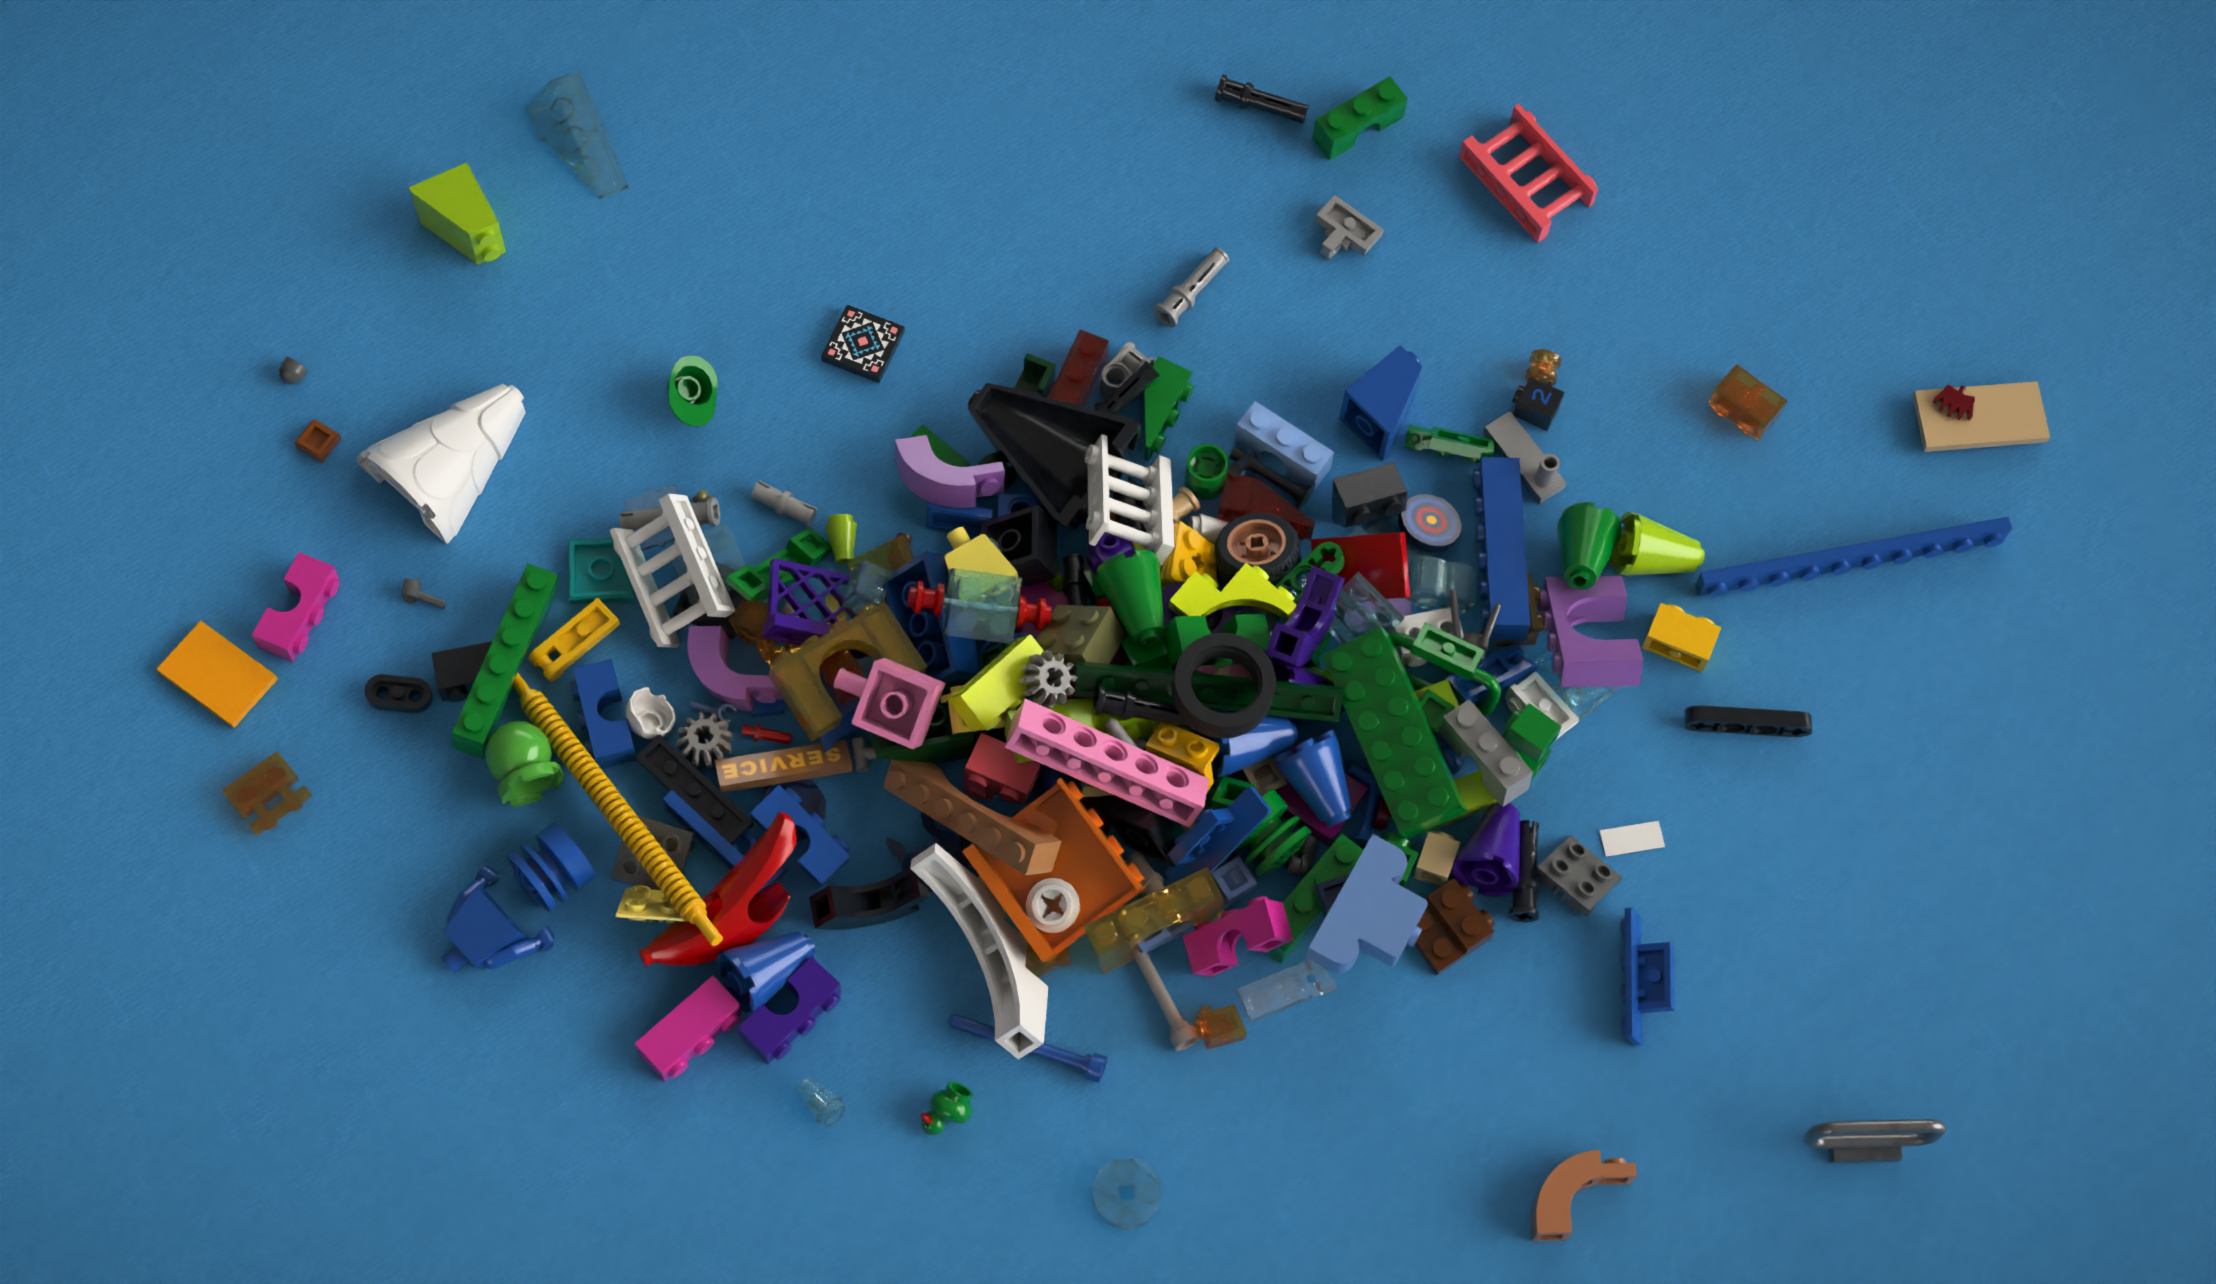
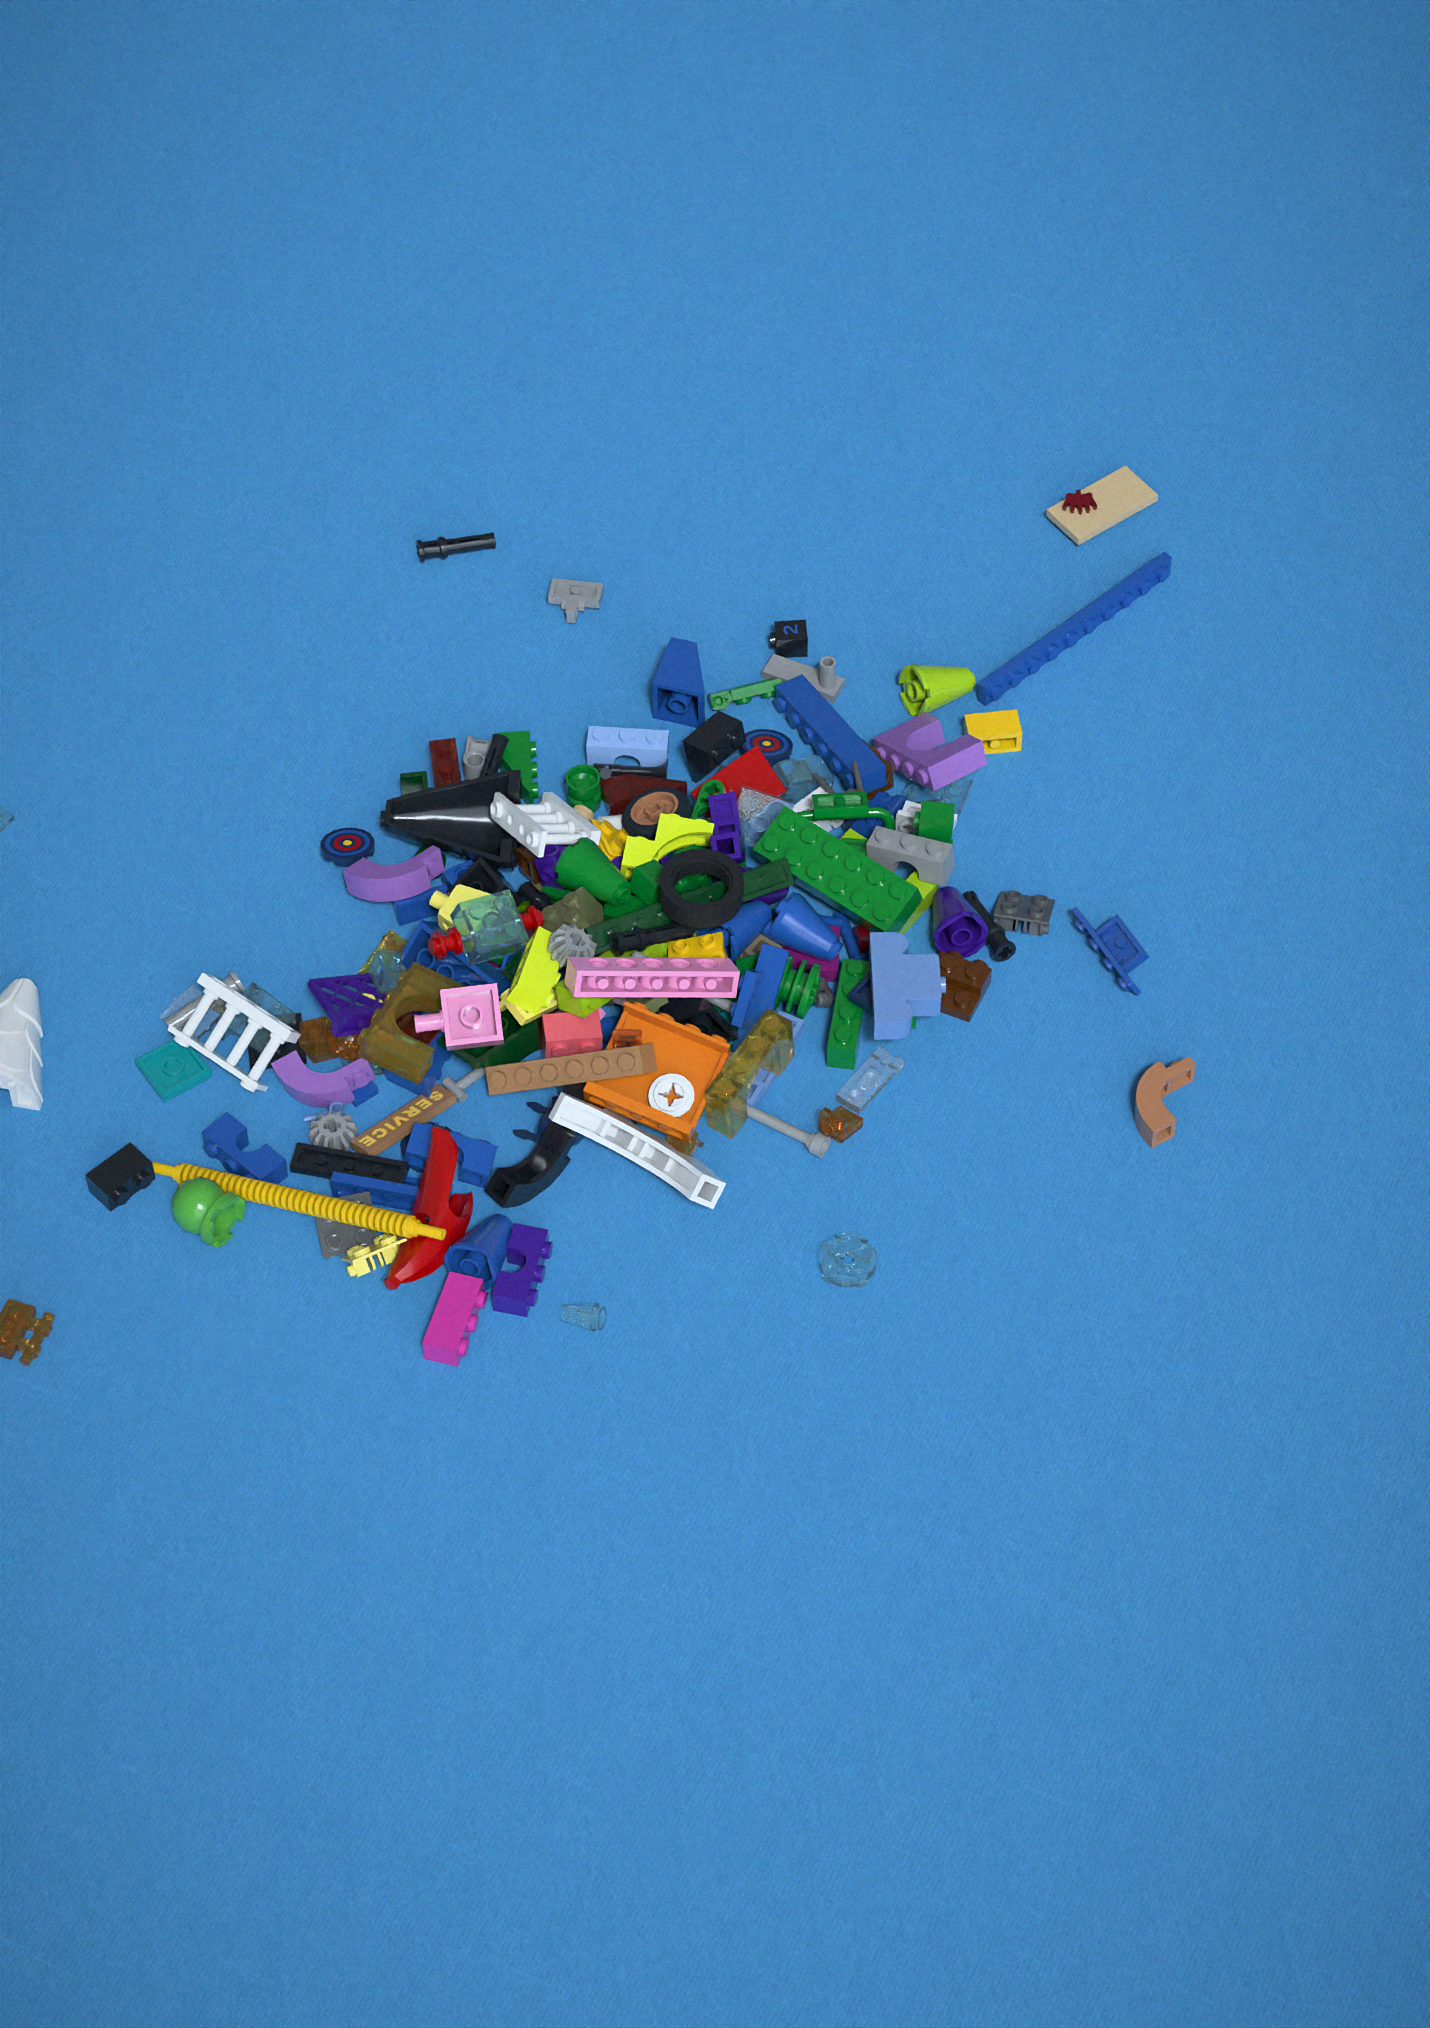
camera: 25 degrees left, 15 degrees down
(400, 693) = (75, 1219): black plate -> none
(412, 594) = (38, 1152): dark grey hand -> none
(485, 931) = (256, 1332): blue torso -> none
(495, 678) = (146, 1153): green arch -> none
(551, 867) = (277, 1263): blue wheel -> none
(574, 639) = (186, 1119): yellow plate -> none
(649, 714) = (279, 1136): white hair -> none
(692, 390) = (162, 917): green piece -> none
(766, 734) = (370, 1111): red piece -> none
(783, 502) = (282, 958): light grey pin -> none
(804, 548) = (306, 1004): green slope -> none
(842, 534) = (341, 957): lime cone -> none
(863, 343) = (268, 832): black tile -> none
(928, 406) = (347, 846): none -> dark blue tile
(948, 1104) = (681, 1267): green animal -> none
(1090, 1065) = (765, 1196): blue piece -> none
(1184, 295) = (487, 692): light grey pin -> none
(1214, 943) = (799, 1072): dark pink arch -> none
(1341, 126) = (542, 511): green arch -> none
(1436, 859) = (920, 940): tan brick -> none
(1517, 197) = (675, 520): coral fence -> none
(1544, 366) = (777, 611): clear orange wheel -> none
(1586, 542) = (886, 699): green cone -> none
(1632, 838) = (1045, 873): white sticker -> none
(1747, 402) = (936, 570): clear orange brick -> none
(1748, 721) = (1074, 761): black beam -> none
(1872, 1139) = (1342, 969): flat silver bar -> none

